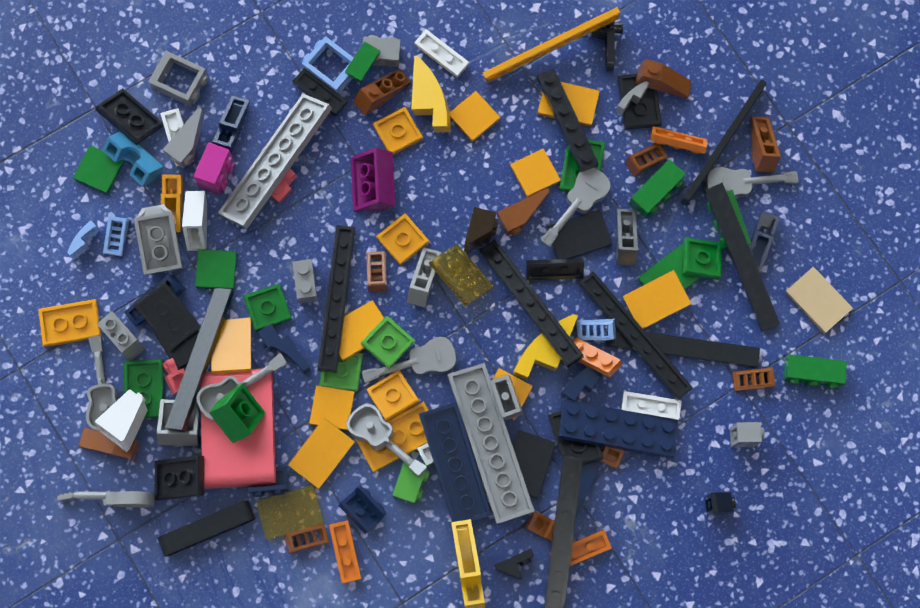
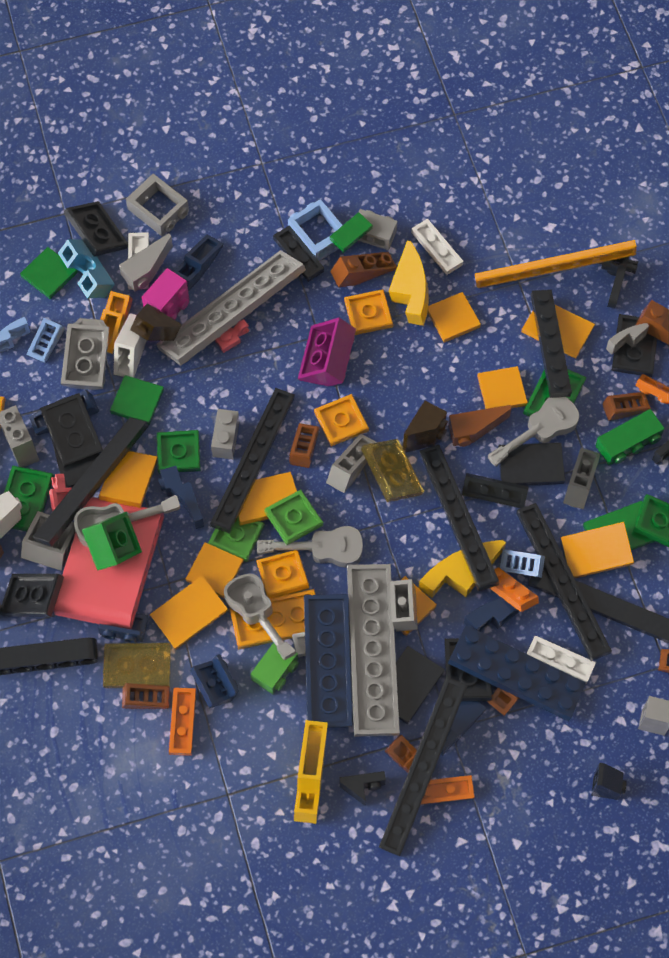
camera: 20 degrees right, 10 degrees down
(213, 198) = (155, 325): none -> dark brown slope

